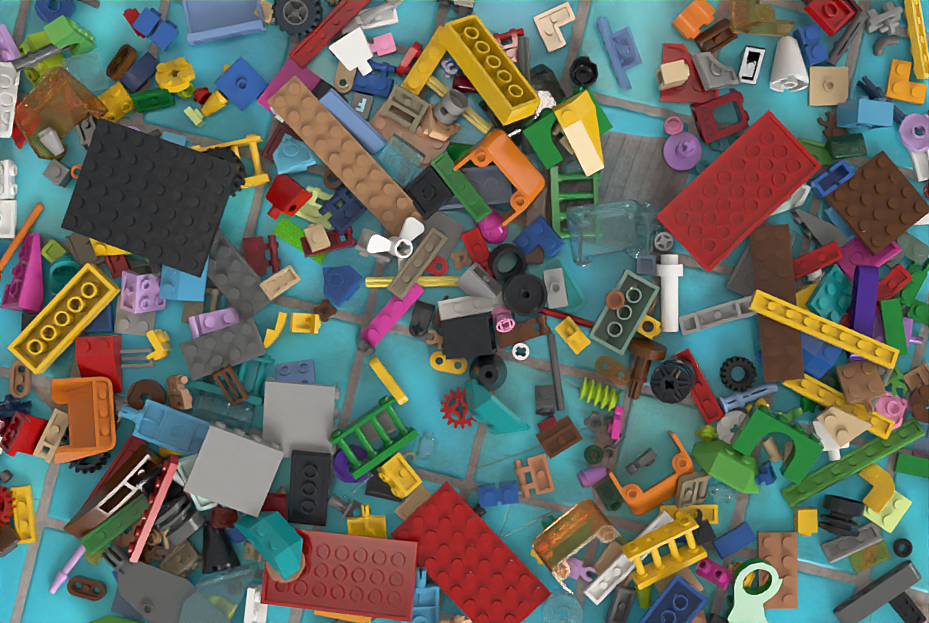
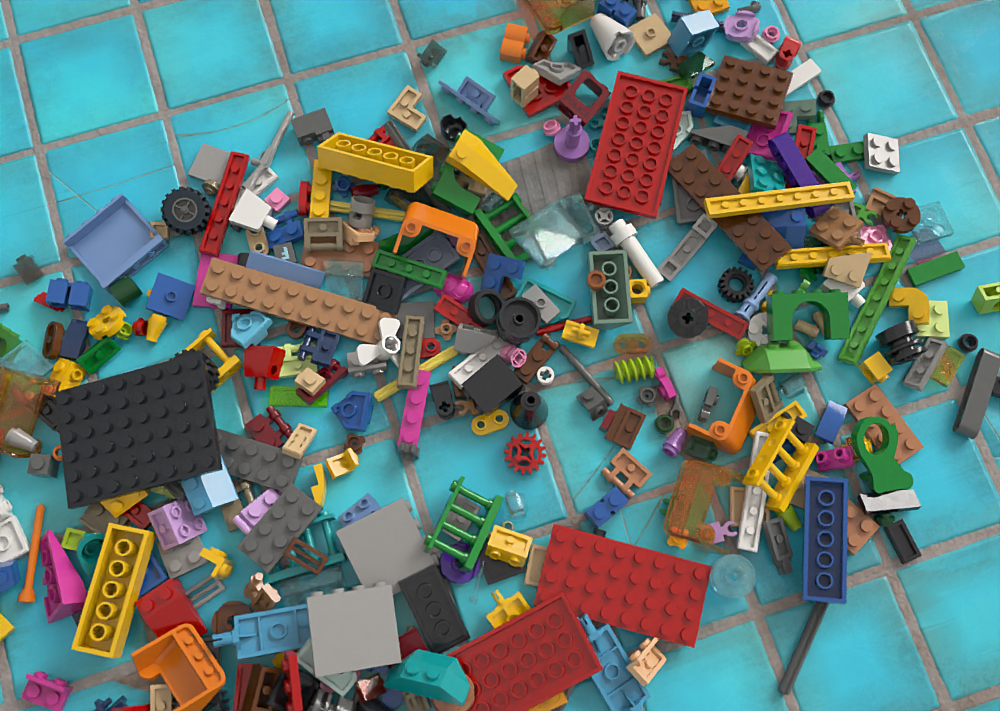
camera: 35 degrees left, 15 degrees down
(17, 378) = (99, 680): medium nougat plate -> none
(196, 116) = (144, 346): yellowish green plate -> none
(205, 54) = (125, 291): none -> dark green piece
(345, 507) = (476, 607): dark grey bracket -> none
(388, 380) = (446, 468): yellow beam -> none
(491, 411) = (554, 434): teal wedge -> none
(646, 352) = (654, 323): reddish brown piece -> none

